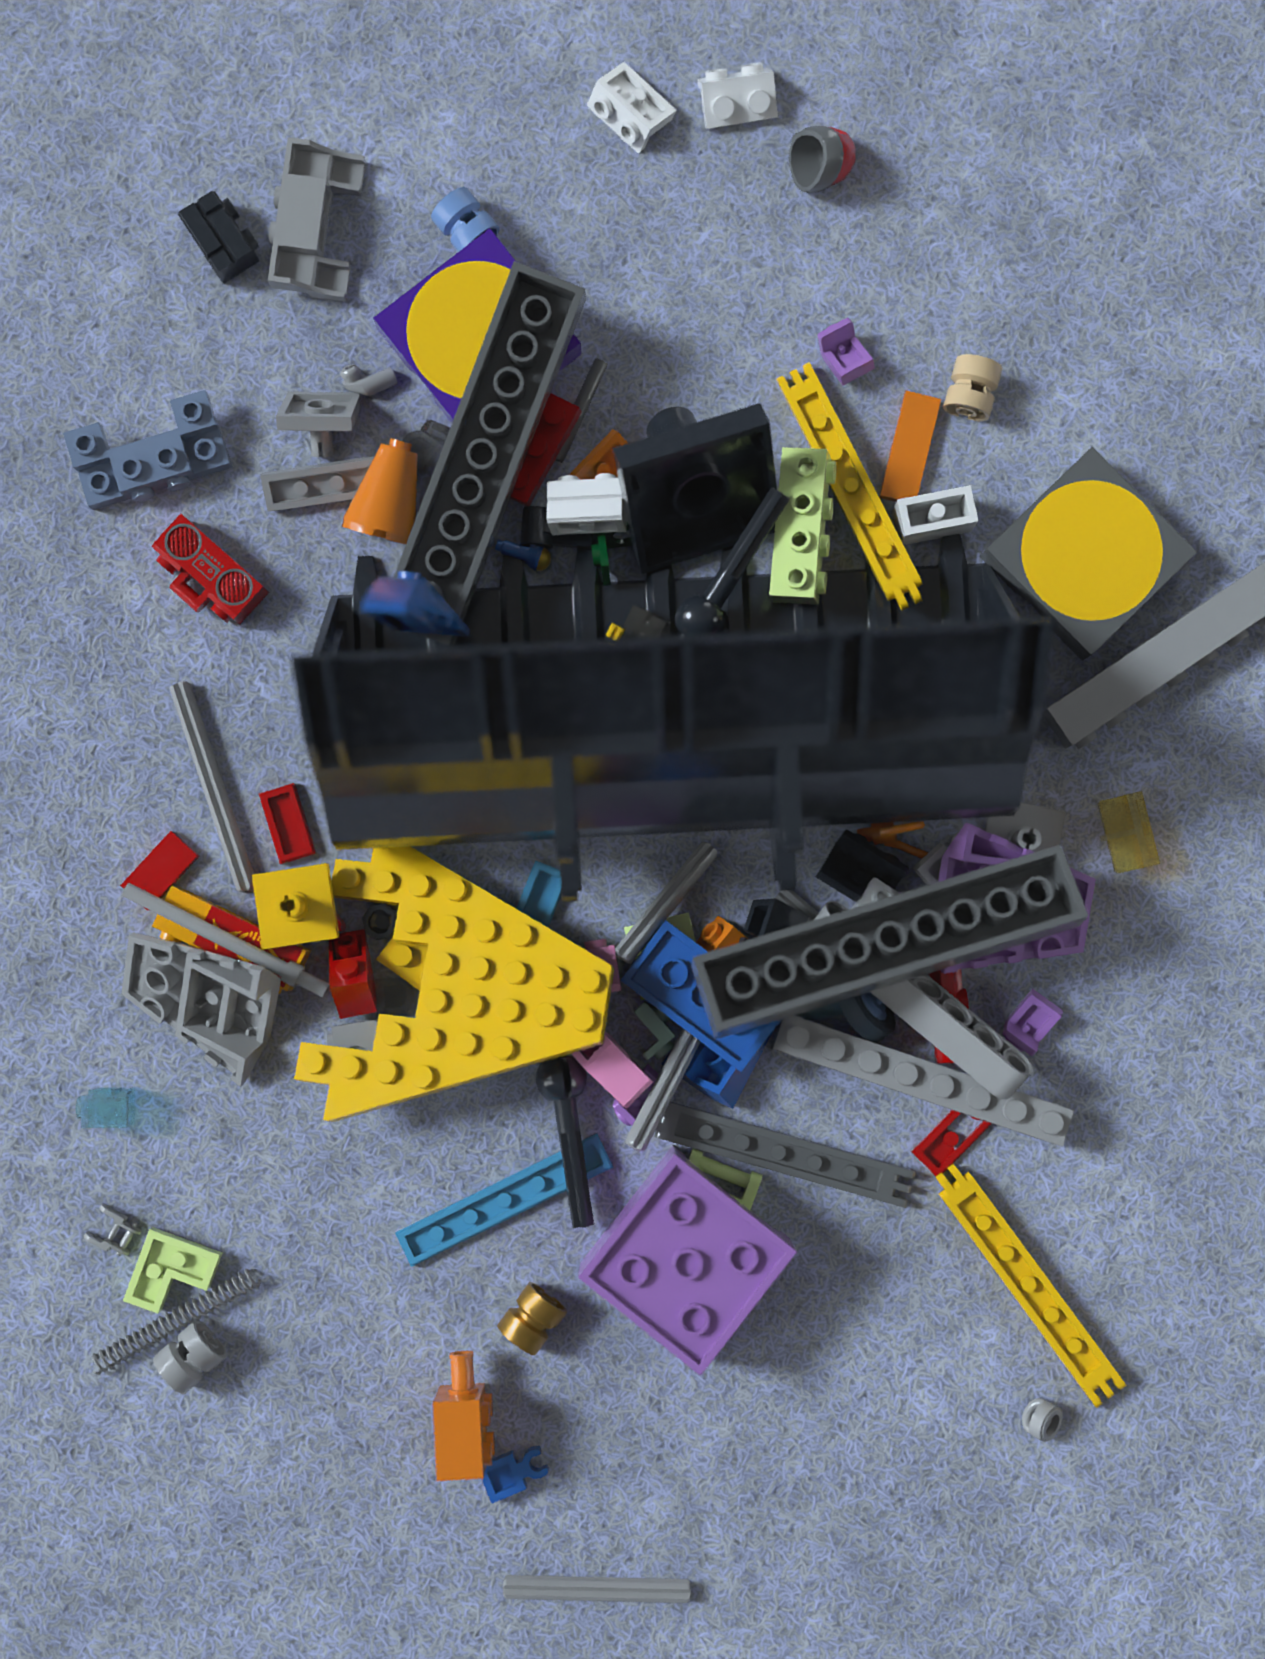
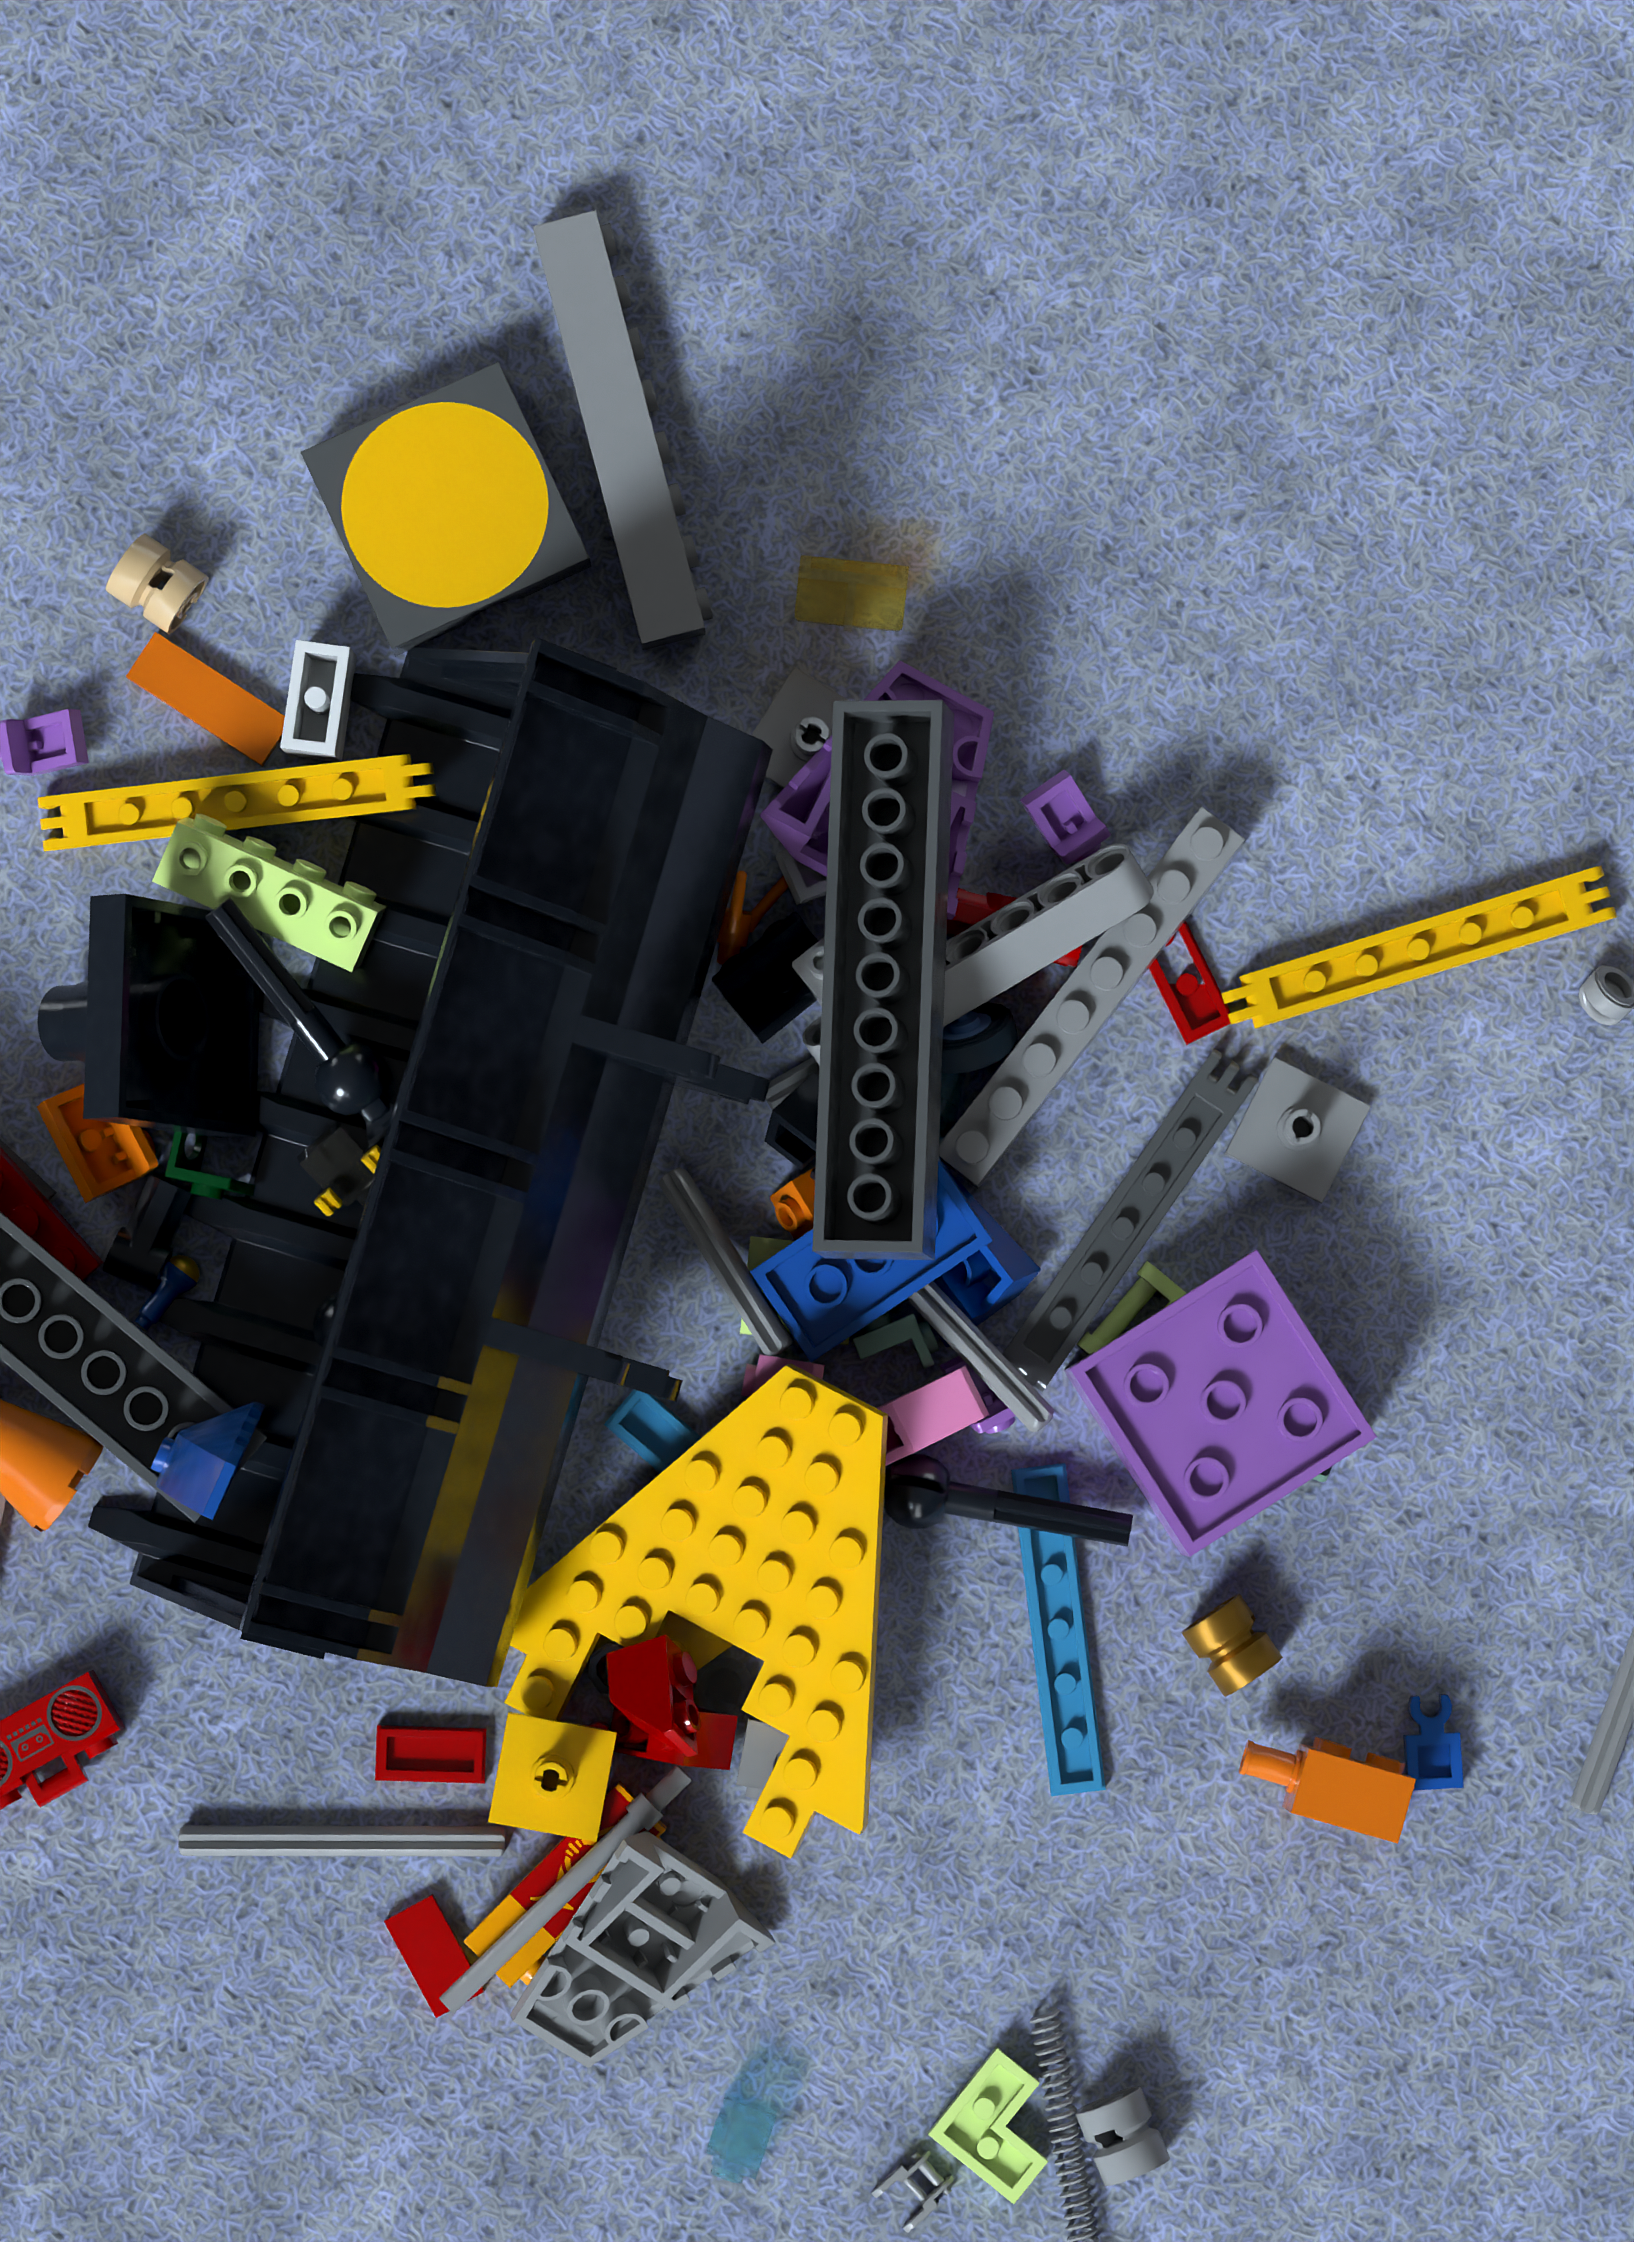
camera: 75 degrees left, 0 degrees up
(372, 952) = (655, 1691): none -> red slope
(585, 505) = (136, 1181): white brick -> none
(881, 1244) = (1297, 1130): none -> light grey tile

